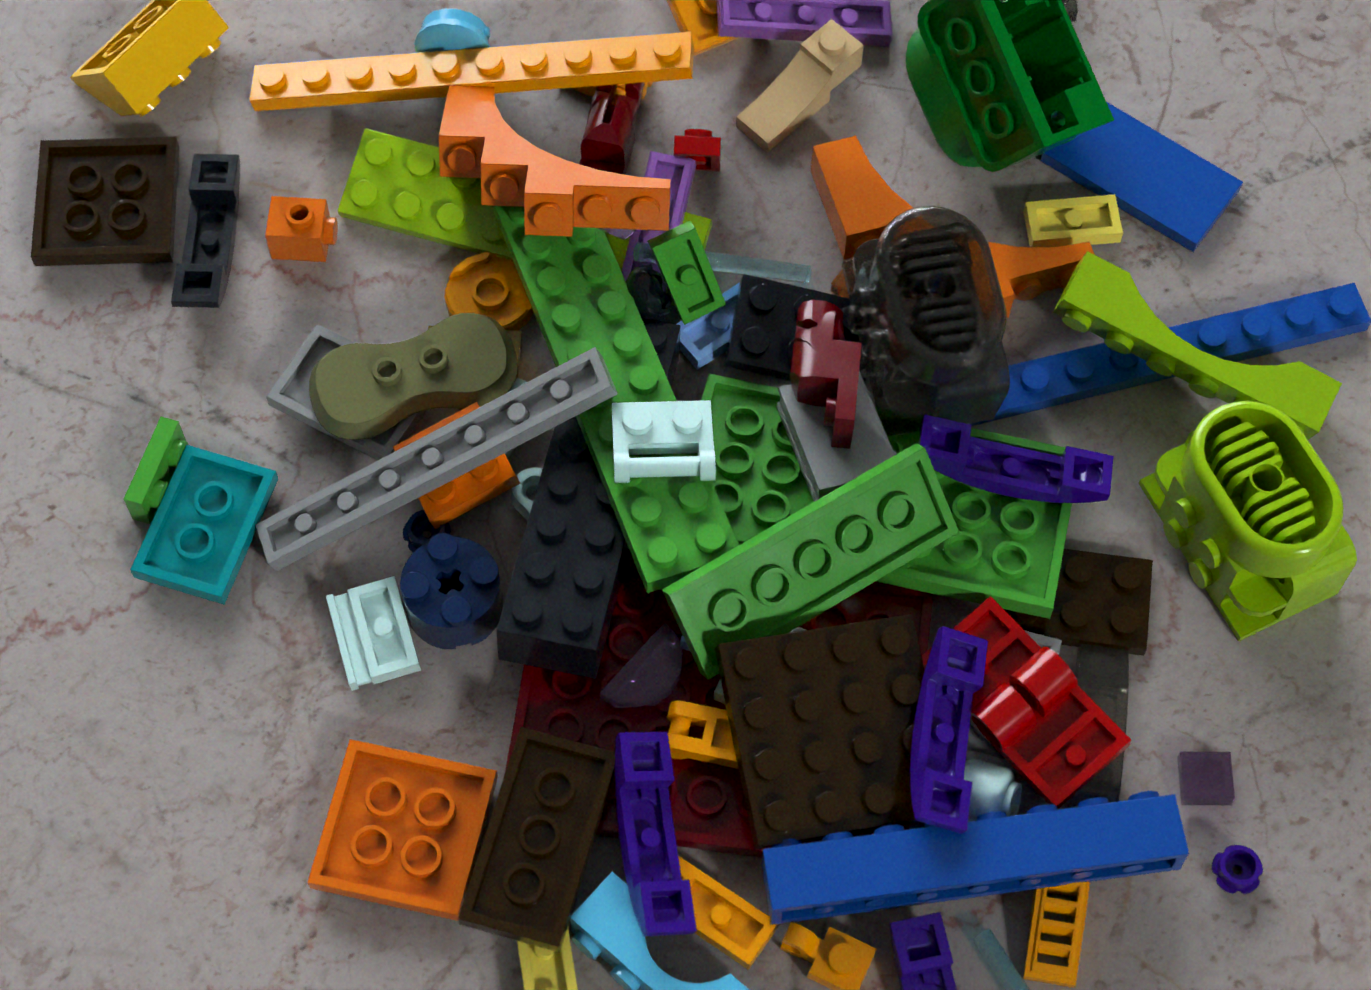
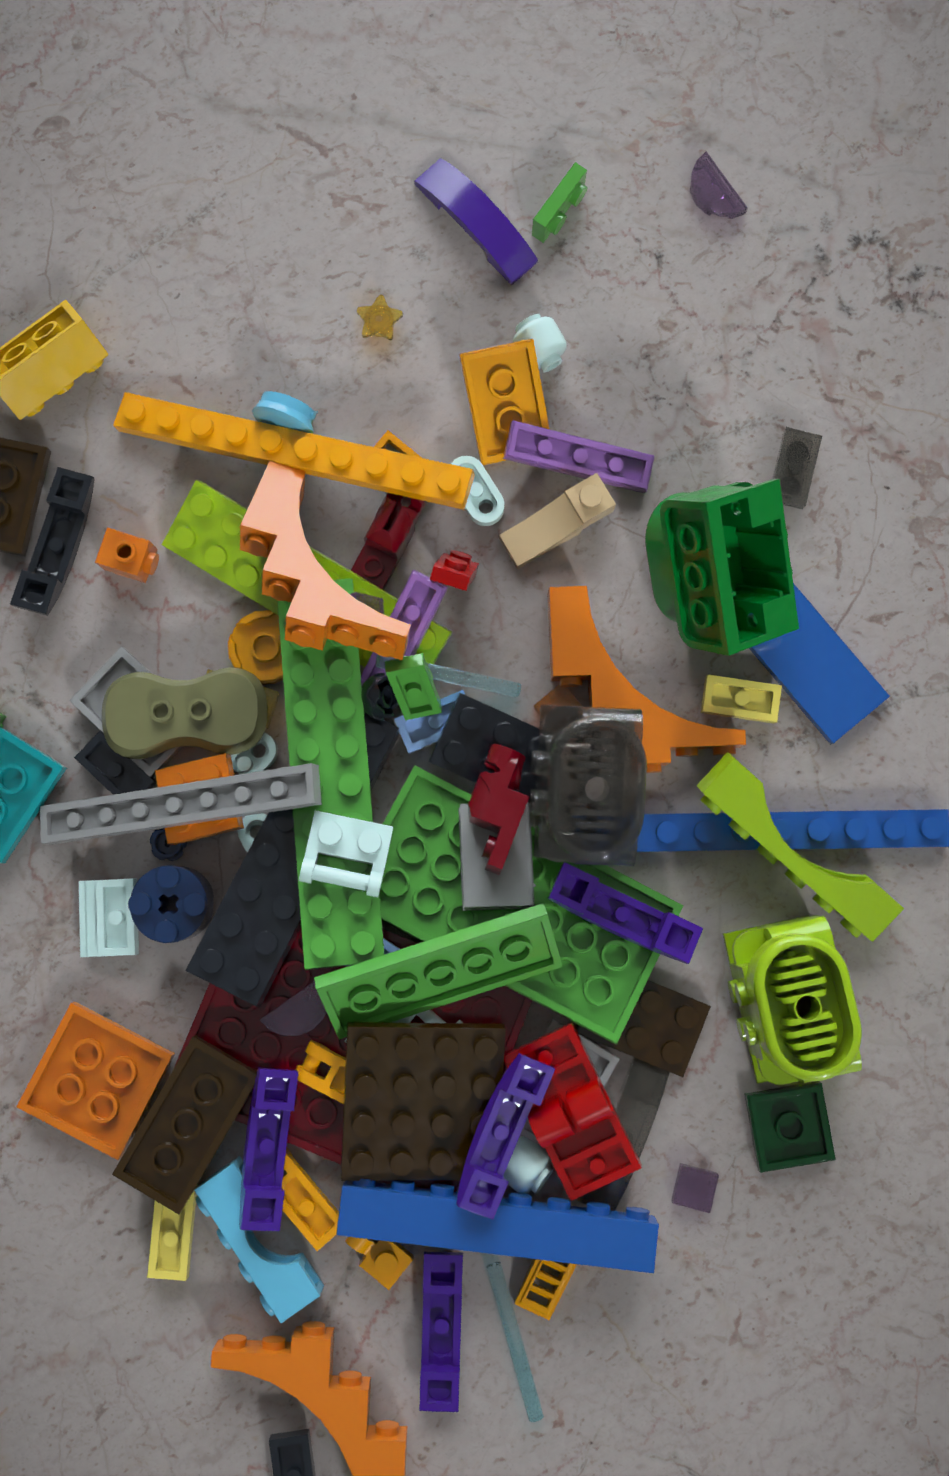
camera: 15 degrees right, 20 degrees up
(328, 456) = (112, 770): none -> black plate
(707, 79) = (482, 491): none -> light aqua plate
(1245, 859) = (701, 1273): dark purple plate -> none
(1297, 678) = (790, 1126): none -> dark green tile

